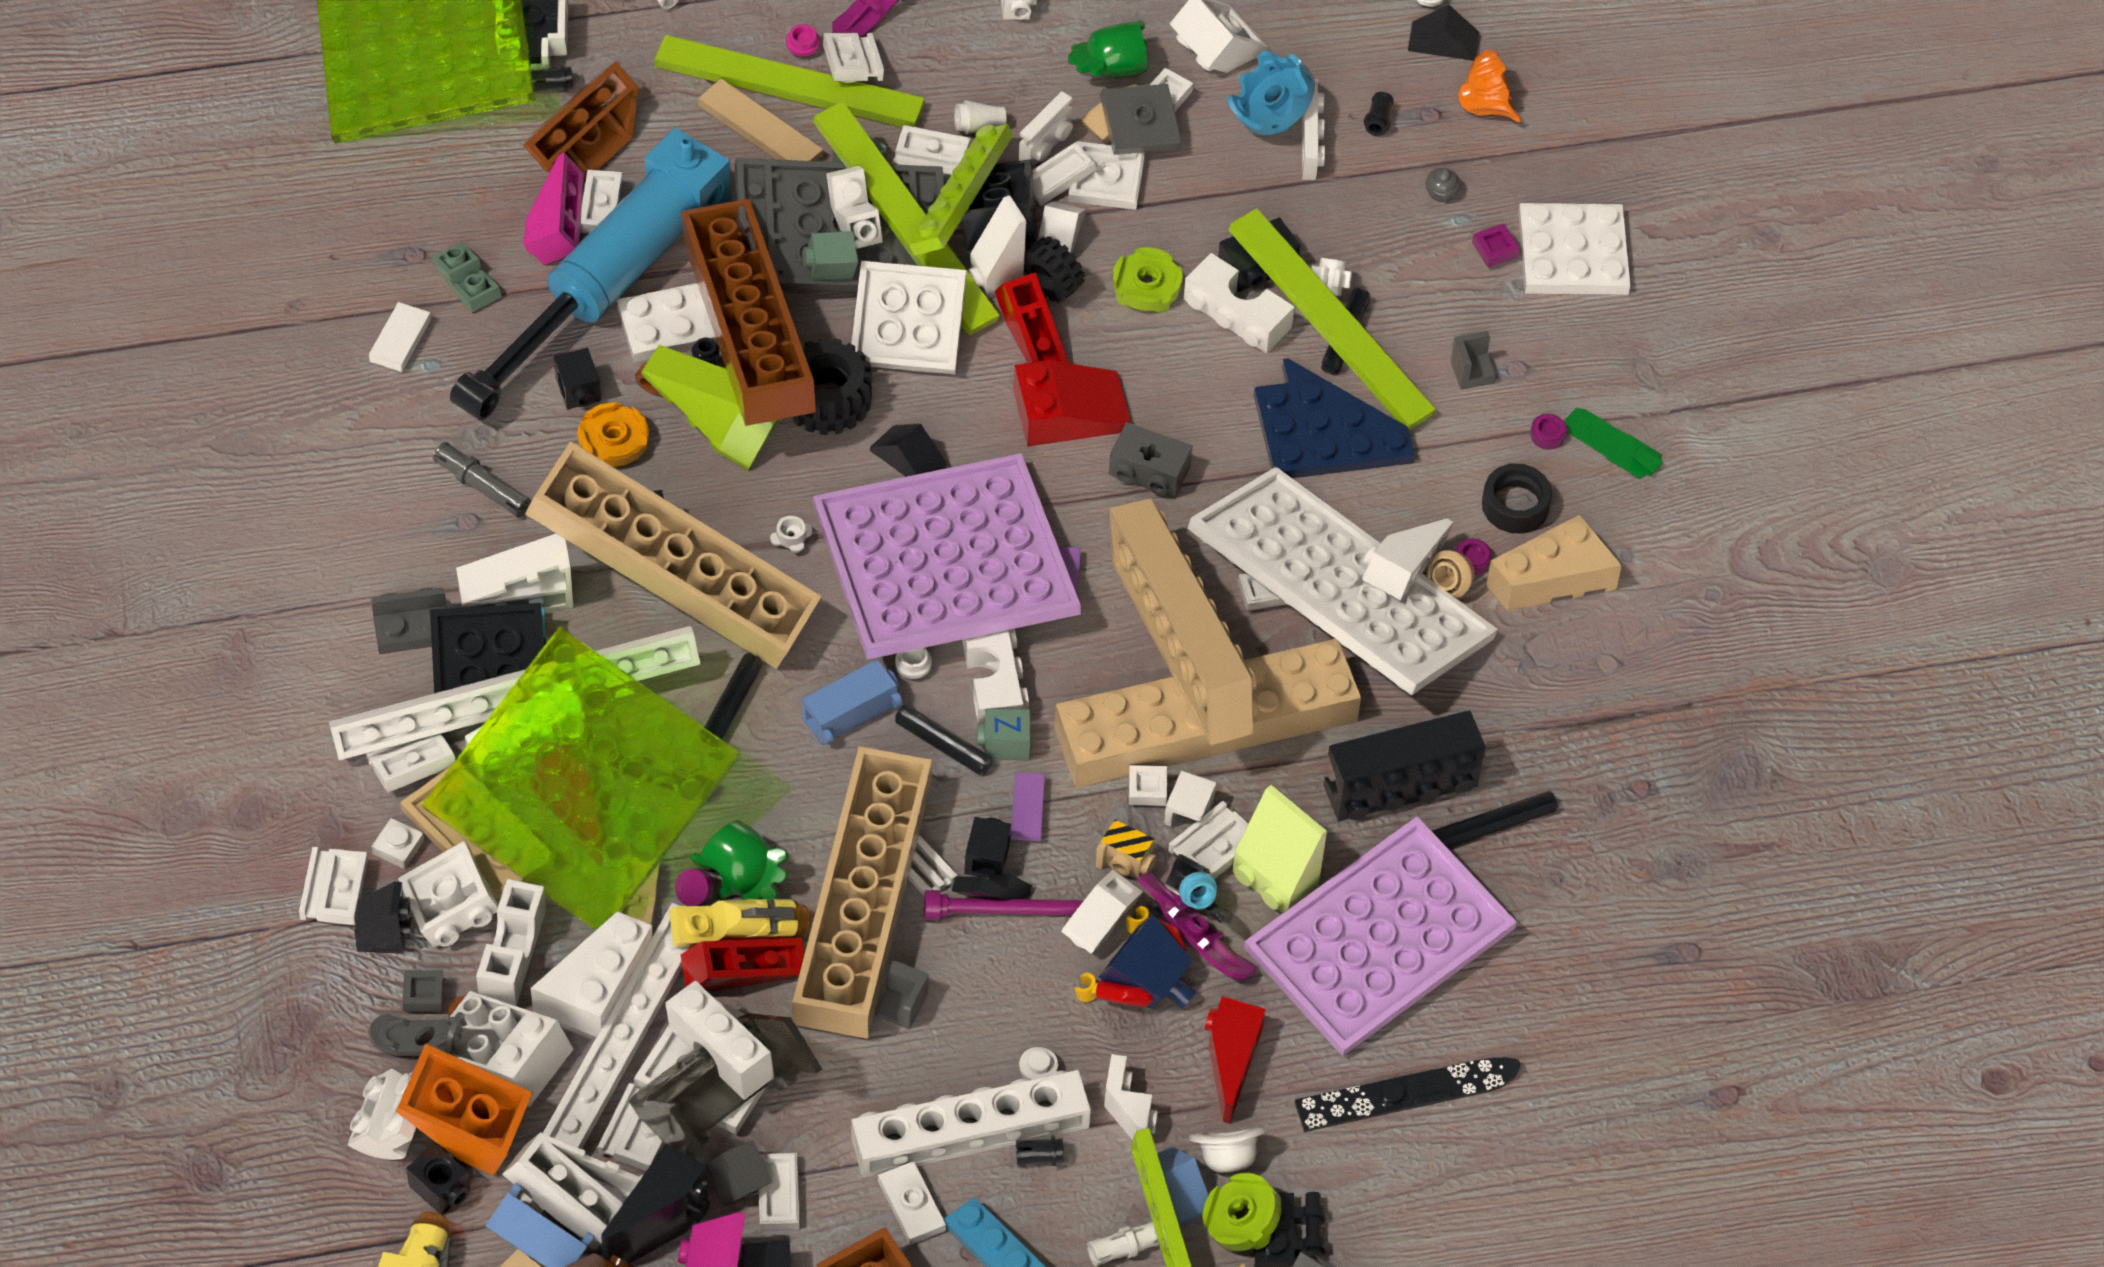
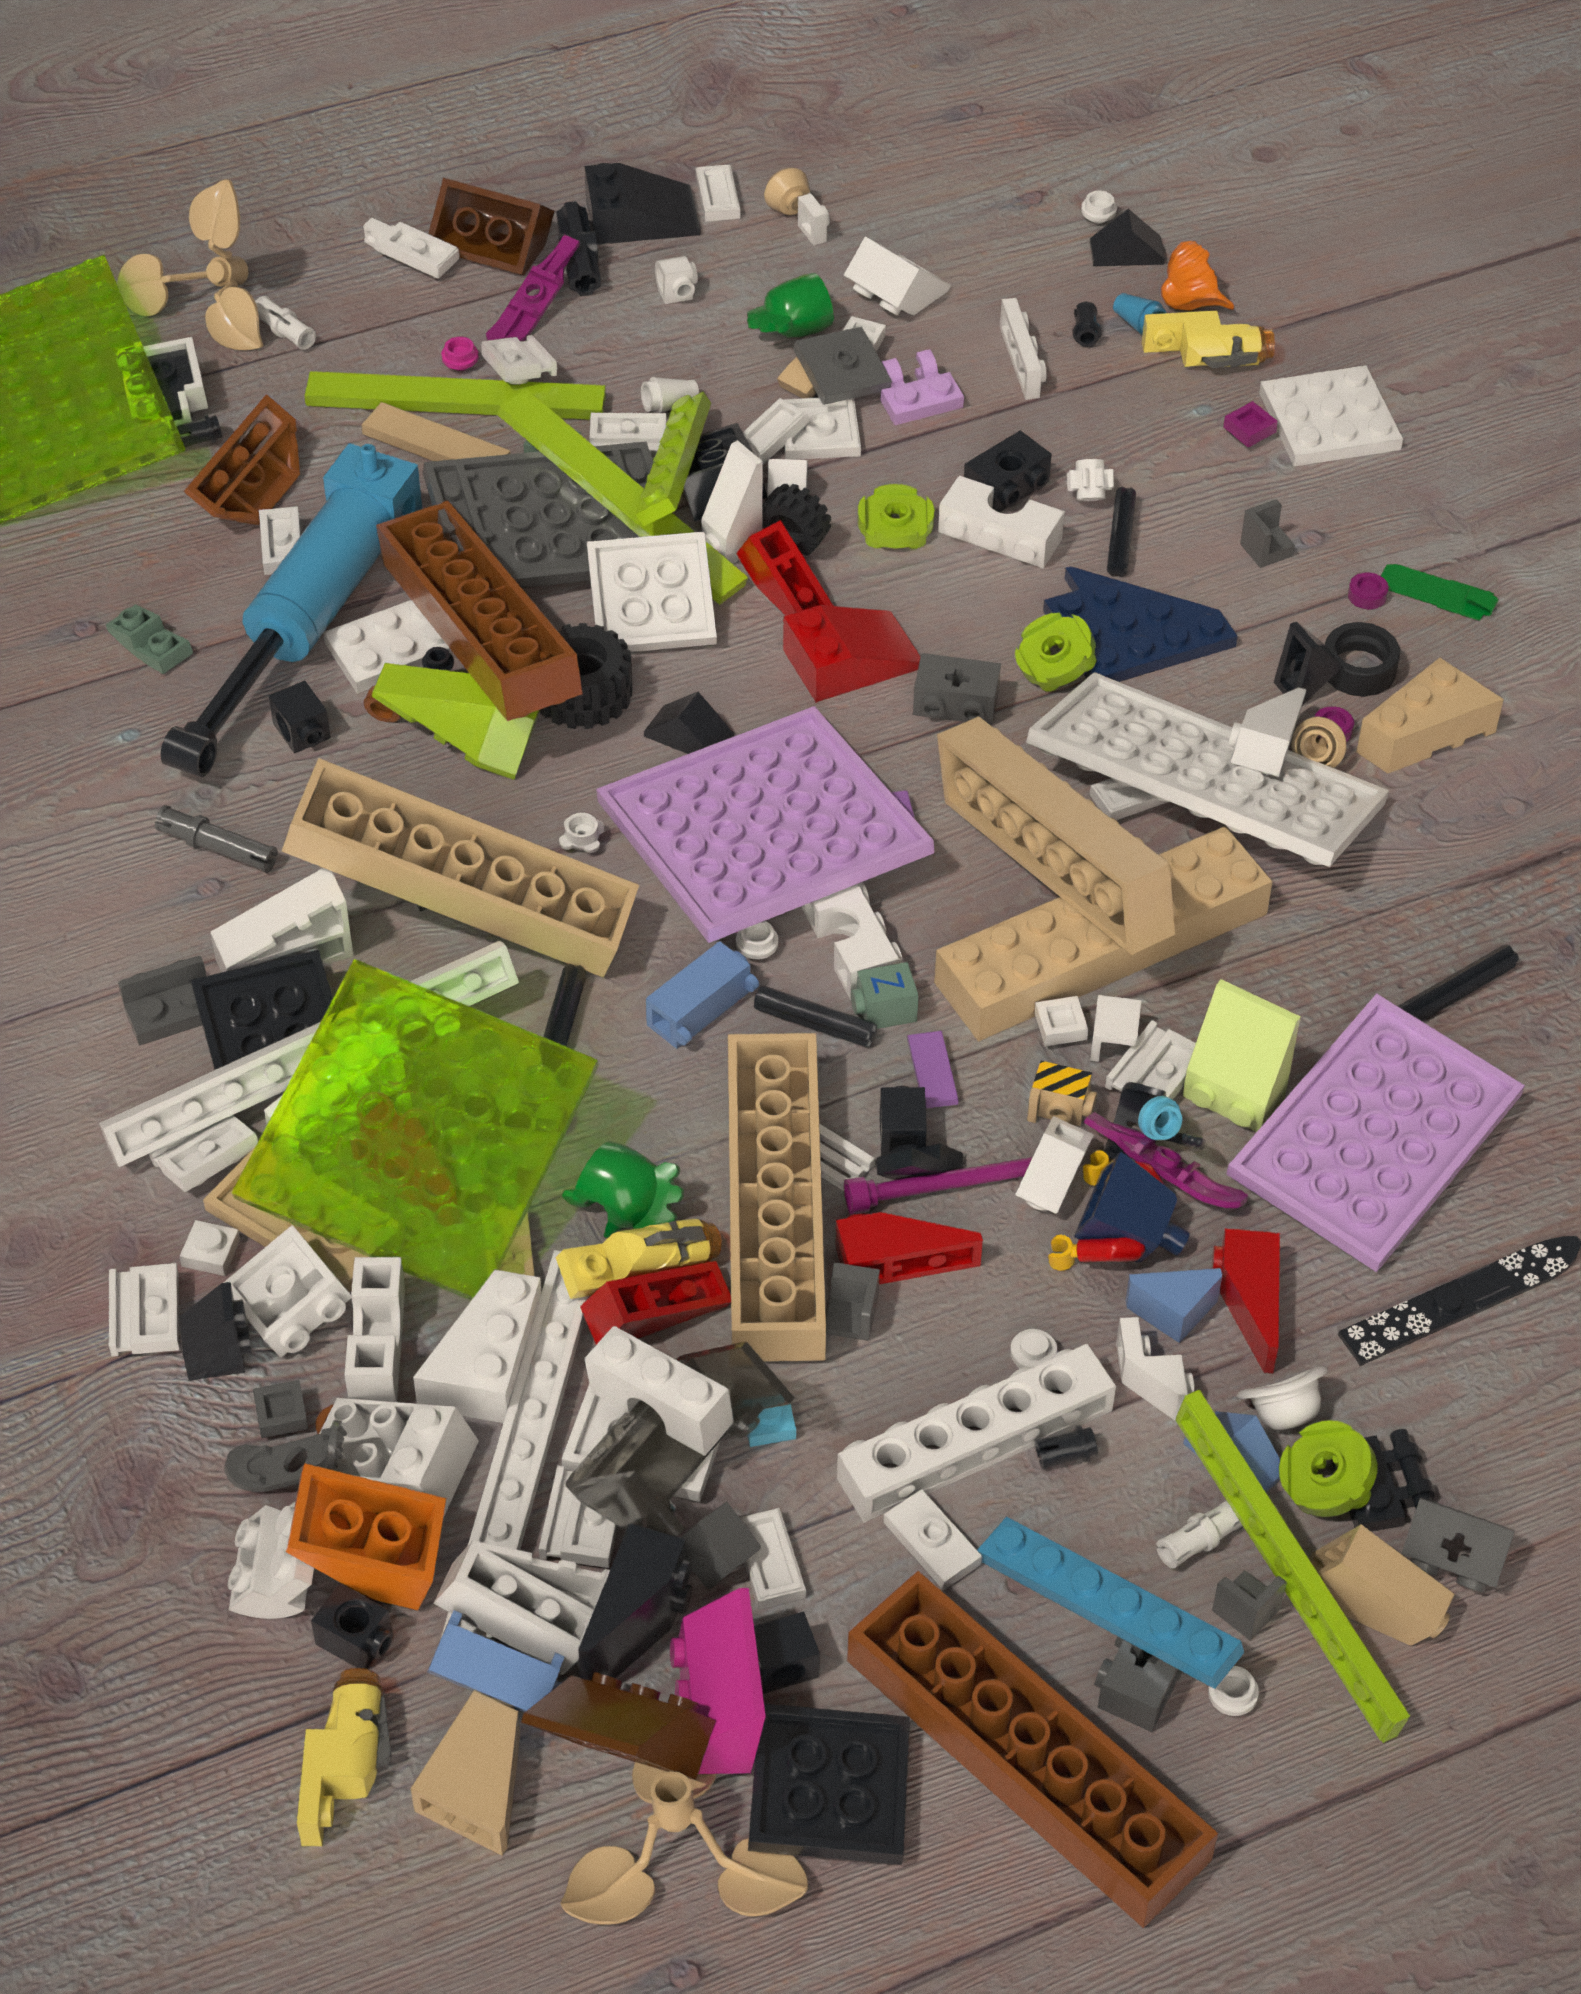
camera: 10 degrees left, 5 degrees down
(400, 337) = (87, 711): white tile -> none
(555, 217) = (235, 557): dark pink slope -> none
(614, 421) = (361, 755): light orange plate -> none
(694, 887) = (575, 1227): magenta tile -> none
(811, 1084) = (774, 1426): none -> medium azure plate
(830, 256) = (552, 542): sand green brick -> none
(852, 207) = (556, 485): white slope -> none
(956, 957) = (905, 1246): none -> red slope
(1046, 130) = (746, 390): white plate -> none
(1166, 1046) = (1174, 1299): none -> medium blue slope
(1209, 161) = (921, 398): none -> lavender plate
(1258, 453) = (1068, 664): none -> lime plate
(1273, 77) = (971, 302): dark azure plate -> none
(1331, 319) = (1107, 518): lime tile -> none
(1405, 766) = (1345, 943): black brick -> none
(1432, 112) = (1134, 309): none -> dark azure cone
(1443, 184) = (1174, 378): dark grey plate -> none
(1462, 495) = (1304, 663): none -> black slope
(1482, 153) = (1206, 341): none -> light yellow plate

